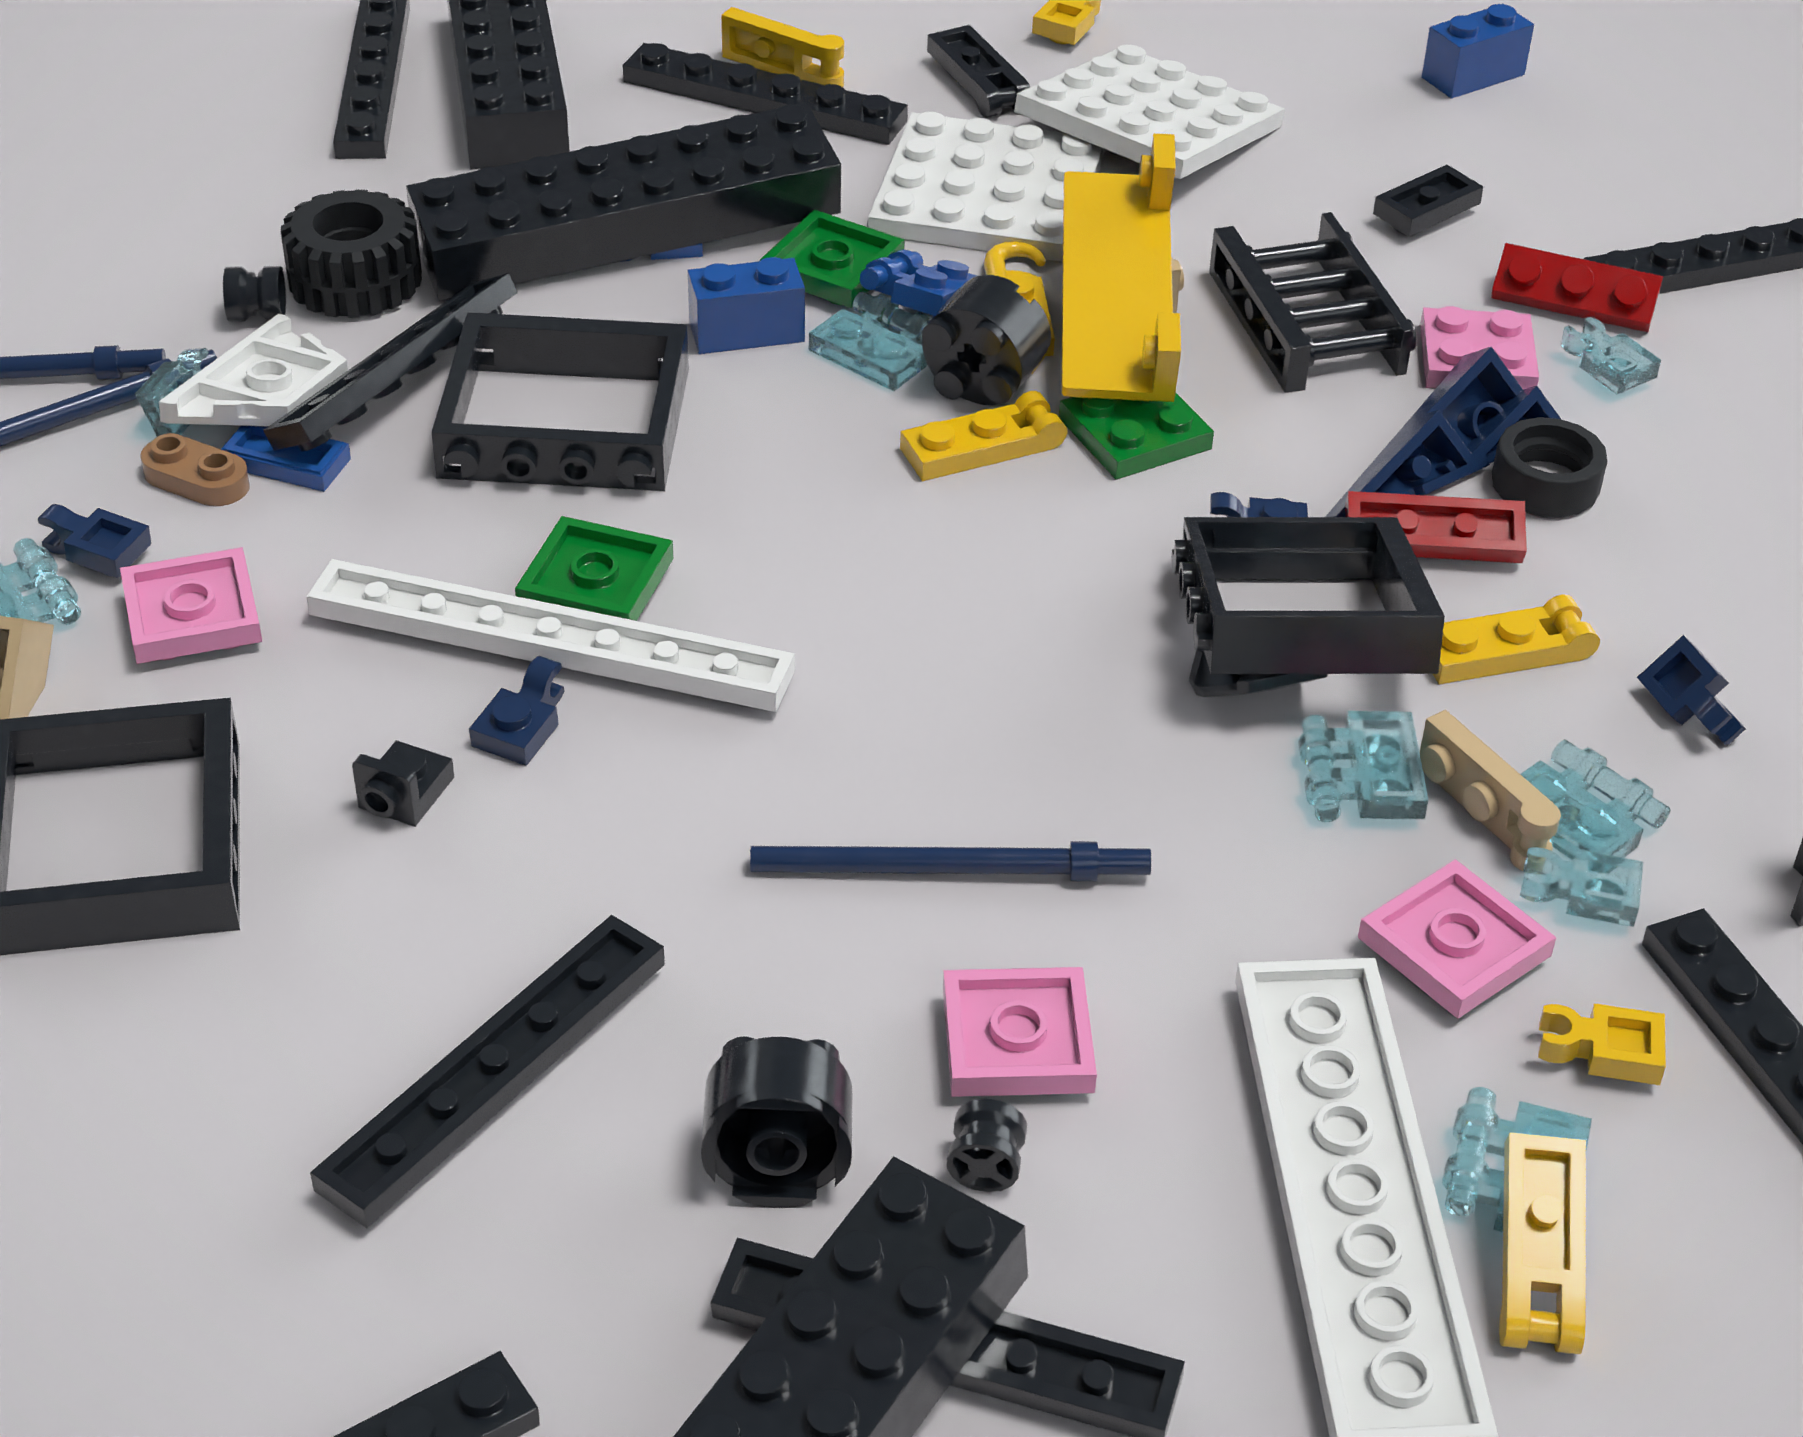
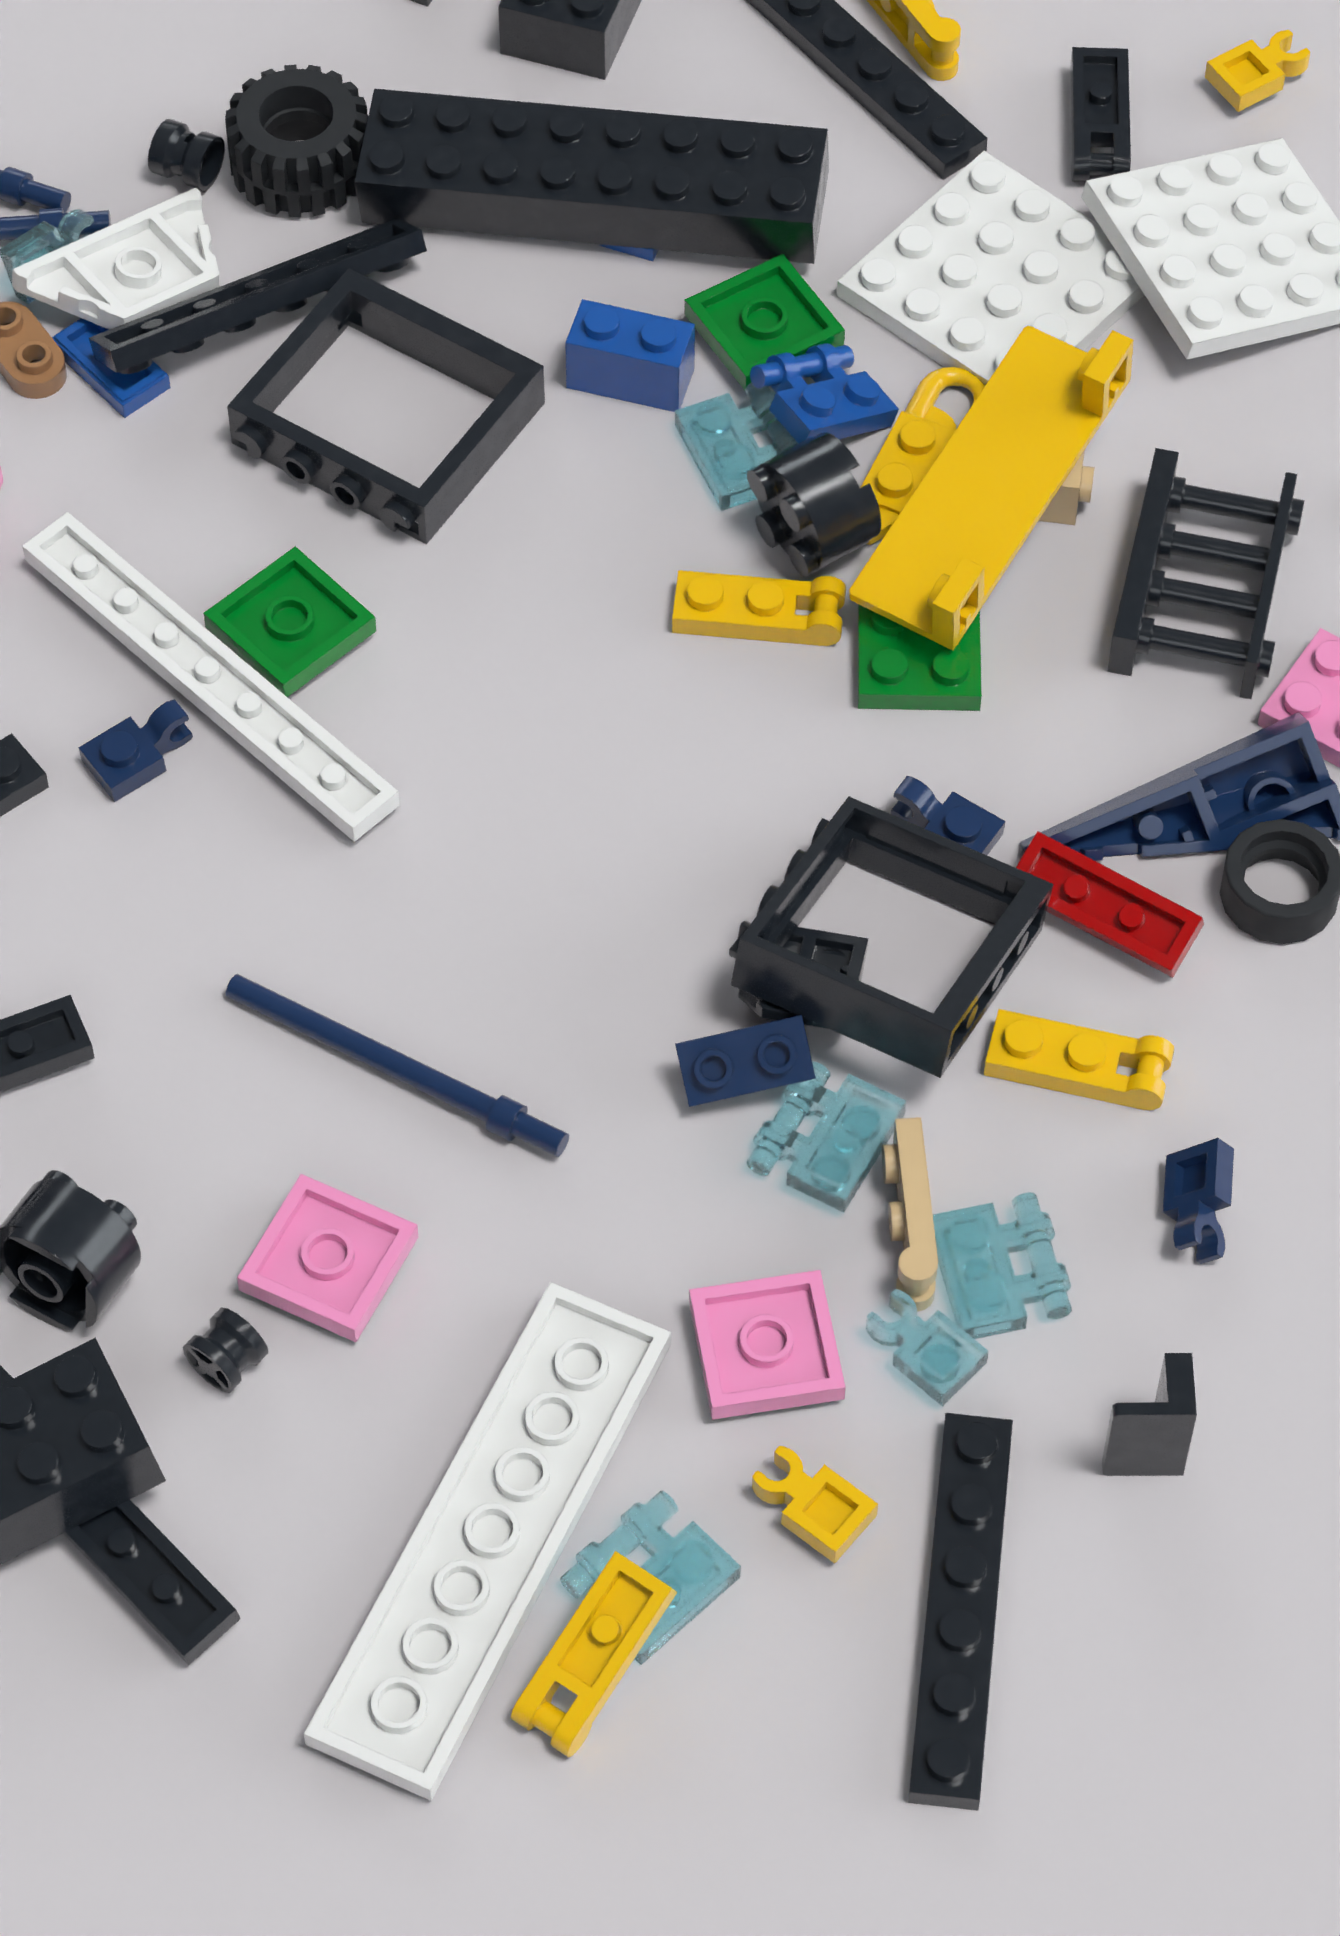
camera: 30 degrees right, 15 degrees up
(1258, 732) = (745, 1061): none -> dark blue hinge

